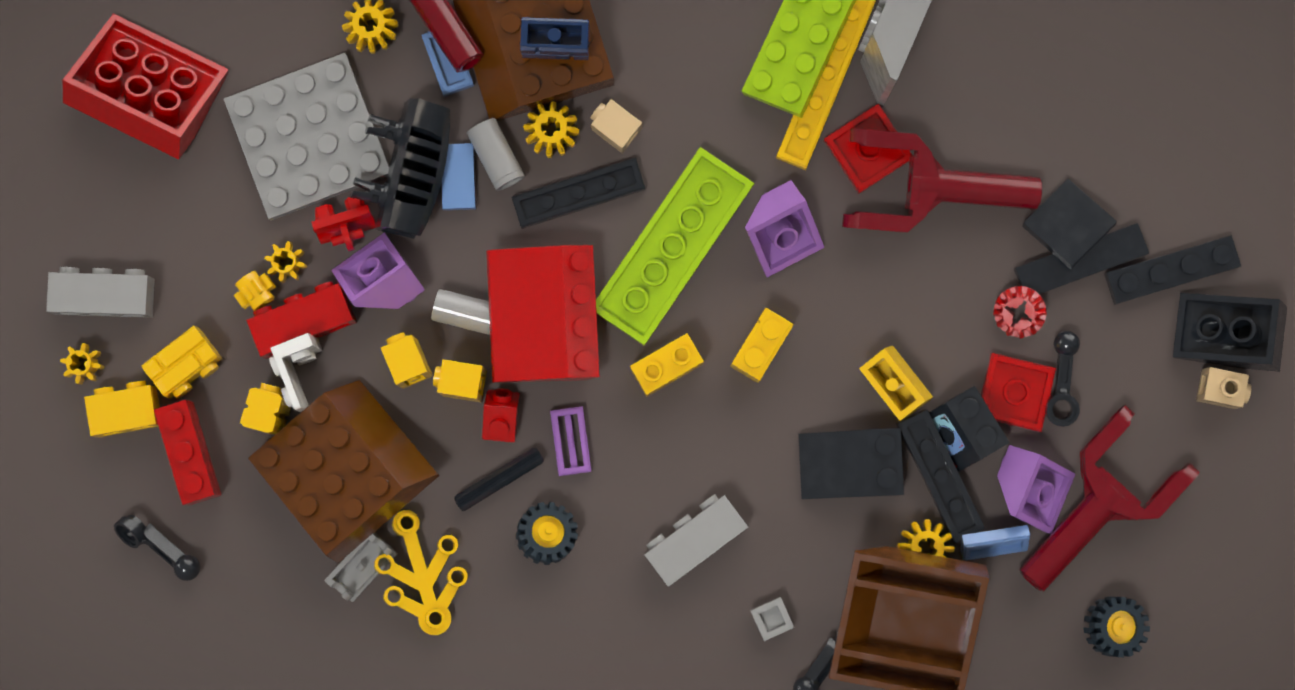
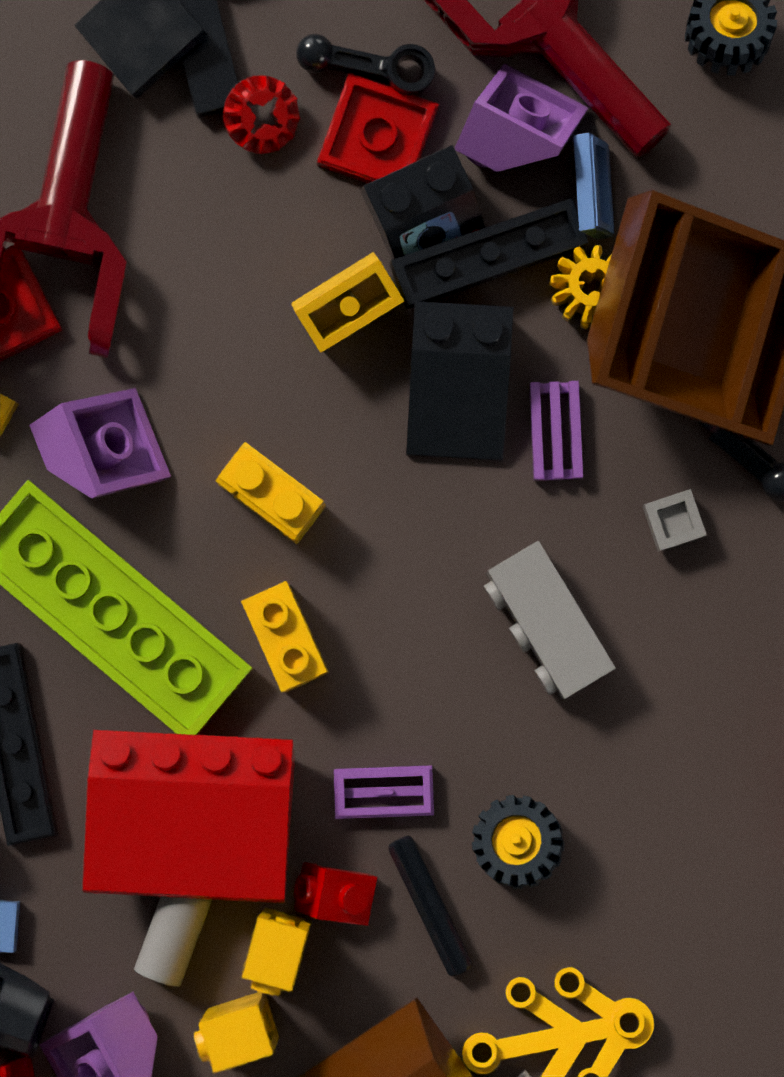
camera: 80 degrees left, 0 degrees up
(853, 529) = (554, 390): none -> medium lavender tile

